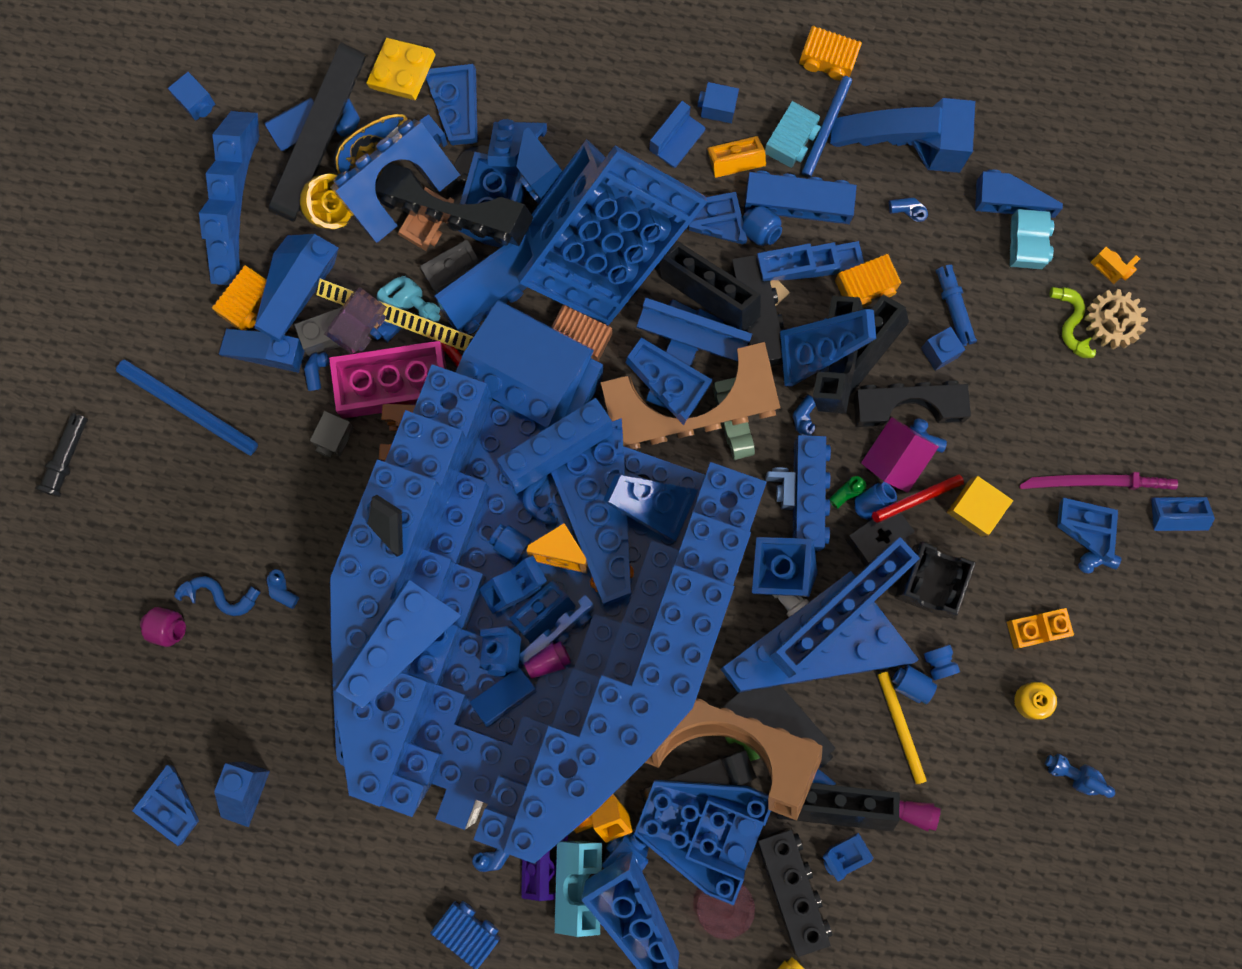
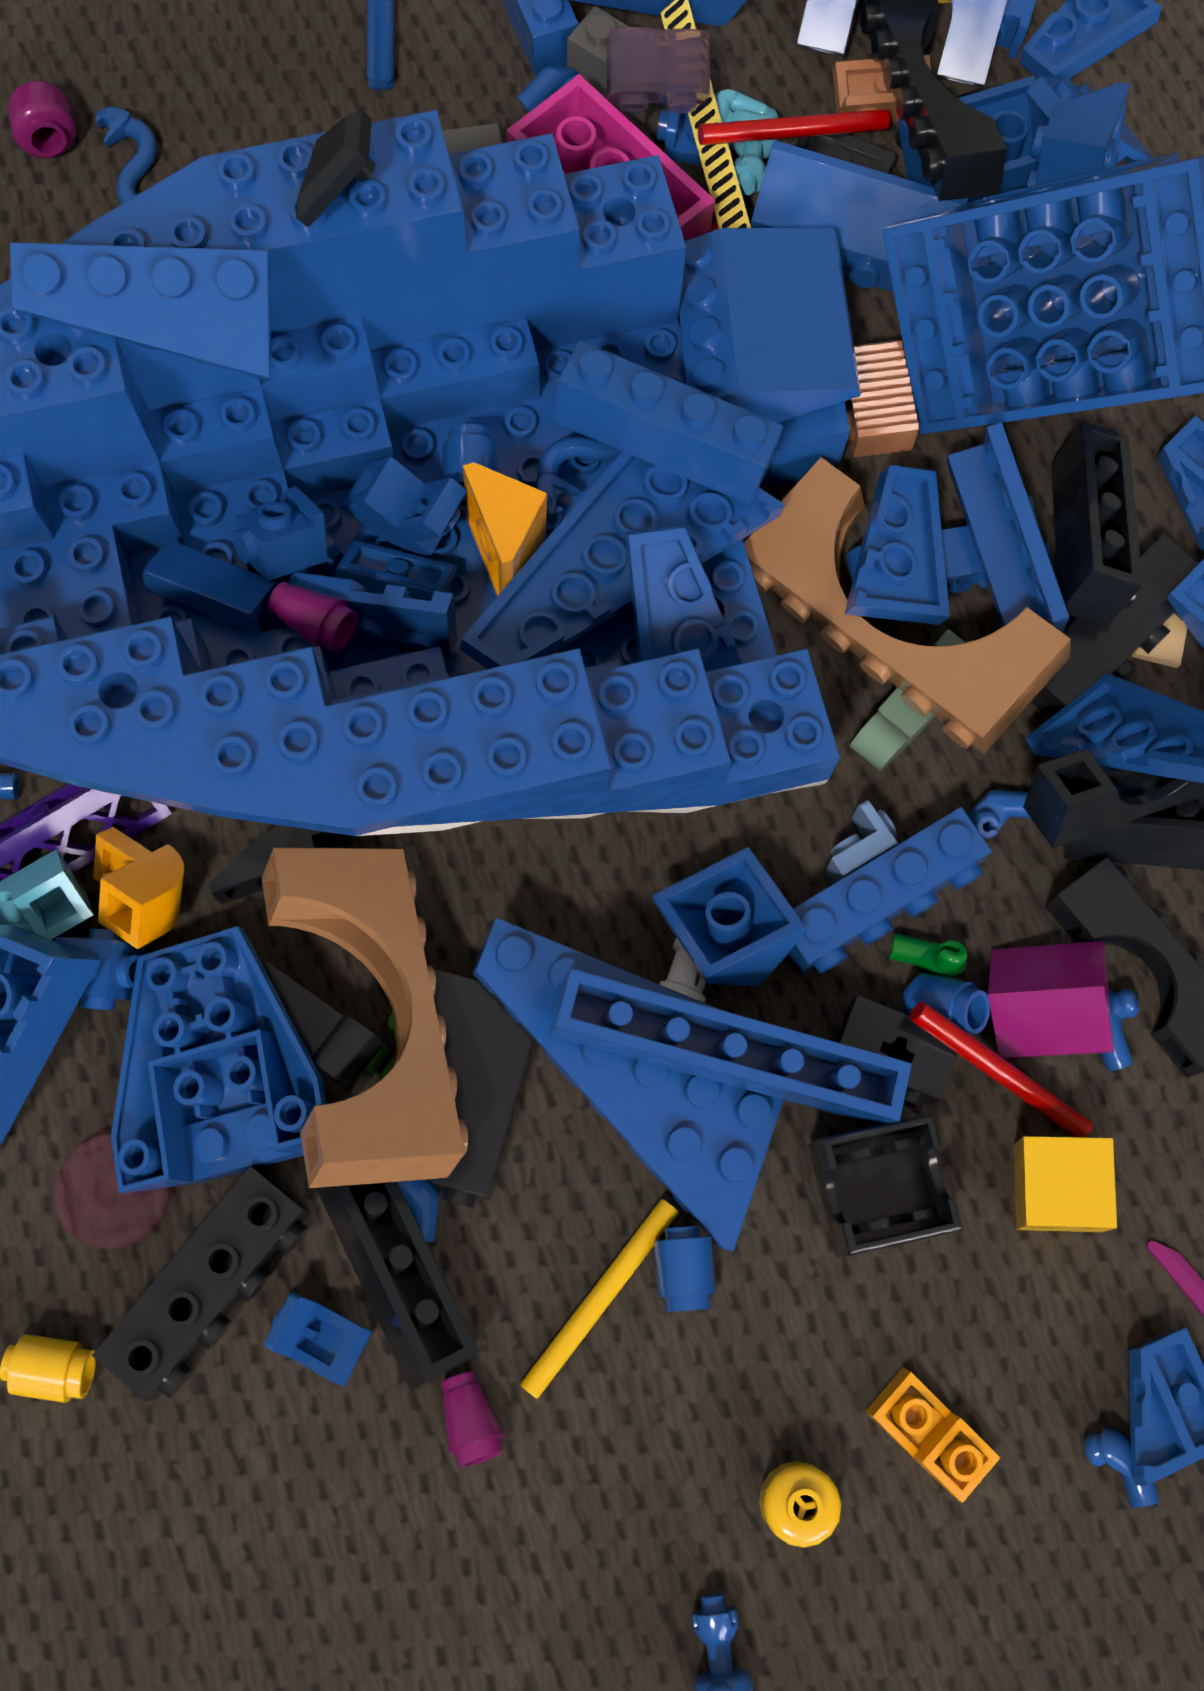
camera: 55 degrees right, 5 degrees down
(424, 277) = (793, 126): none -> red bar
(941, 661) = (757, 1290): blue wheel -> none

